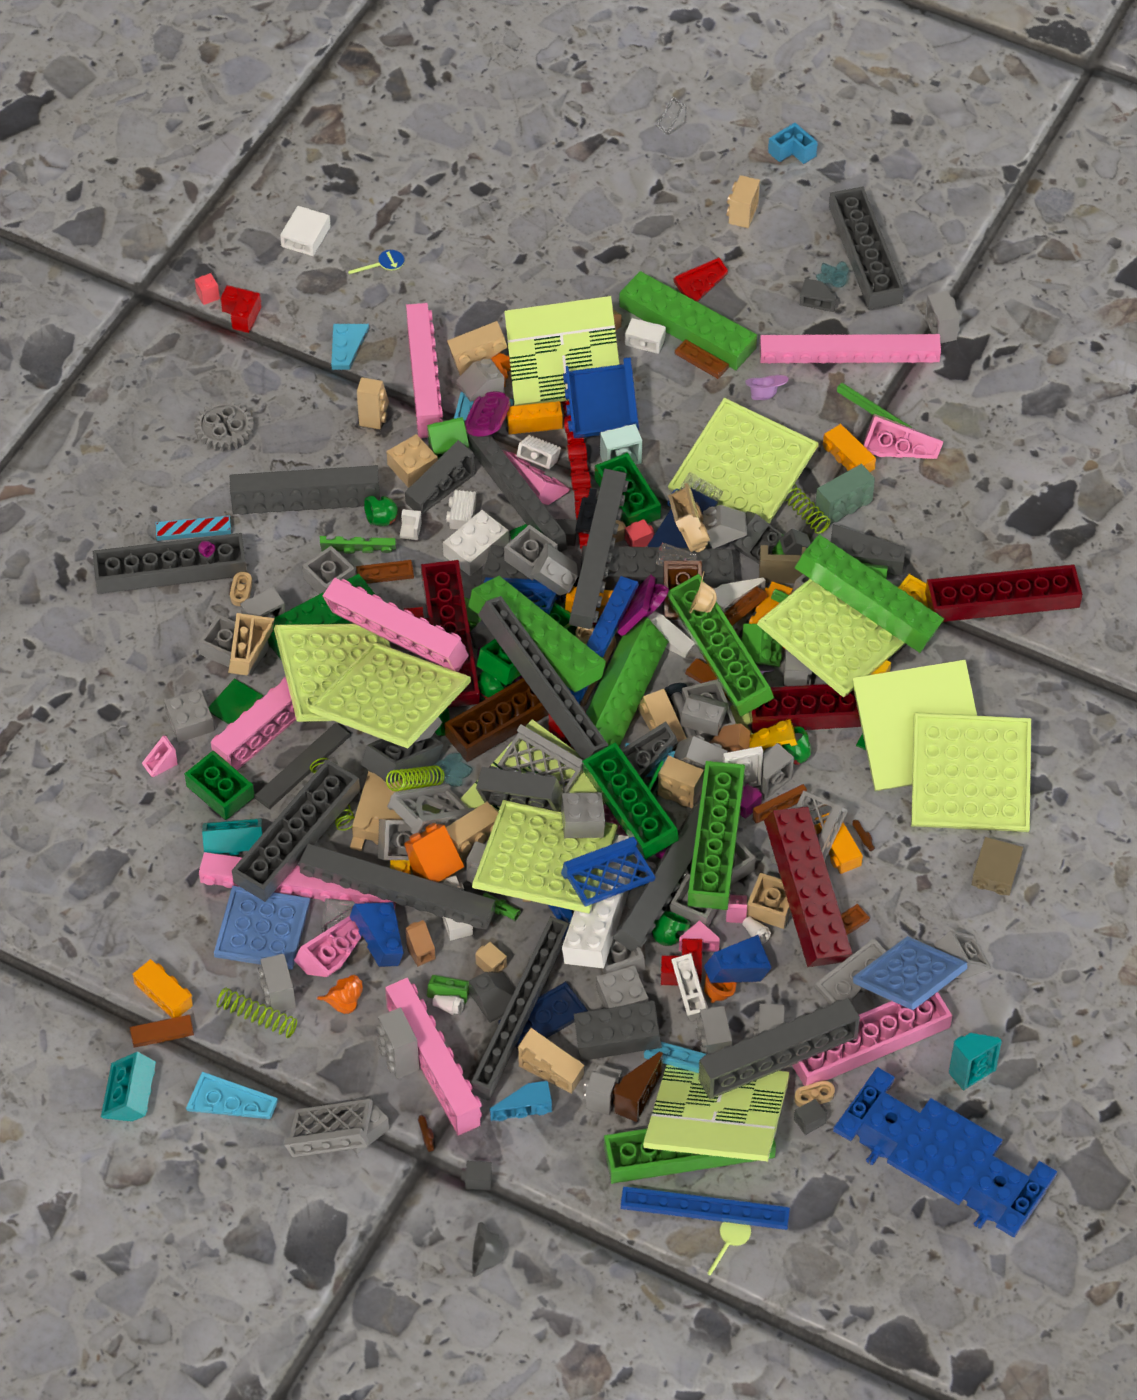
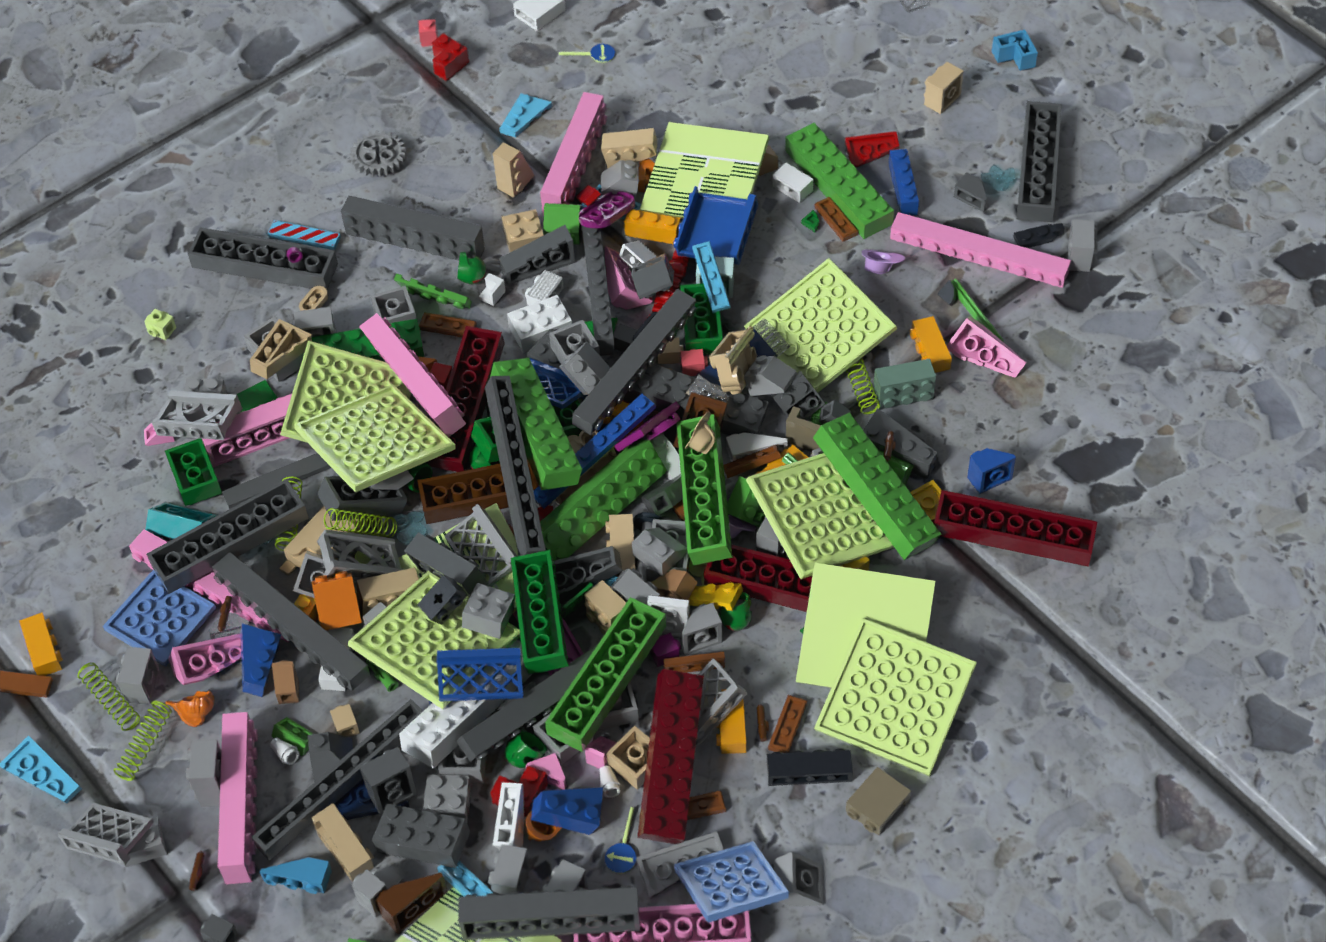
camera: 25 degrees right, 0 degrees up
(102, 657) = (160, 324): none -> yellowish green brick
(188, 720) = (189, 402): none -> light grey fence
(315, 1037) = (145, 743): none -> lime piece
(329, 901) = (225, 609): none -> reddish brown piece
(460, 405) = (588, 195): none -> red tile
(540, 807) = (442, 599): none -> black brick
(566, 465) = (653, 276): none -> dark grey slope
(569, 991) = (388, 779): none -> dark grey brick
(624, 448) = (711, 276): none -> medium azure tile
(679, 368) = (811, 221): none -> green tile
(680, 662) = (664, 496): none -> flat silver slope
(749, 305) = (903, 182): none -> blue brick
(797, 990) = (621, 857): none -> blue piece
(840, 398) = (948, 293): none -> black tile
(863, 553) = (889, 446): none -> reddish brown piece
(886, 829) = (787, 724): none -> dark orange tile
(895, 319) = (1038, 235): none -> black hinge
(924, 858) = (809, 767): none -> black brick
(957, 548) = (990, 469): none -> blue slope

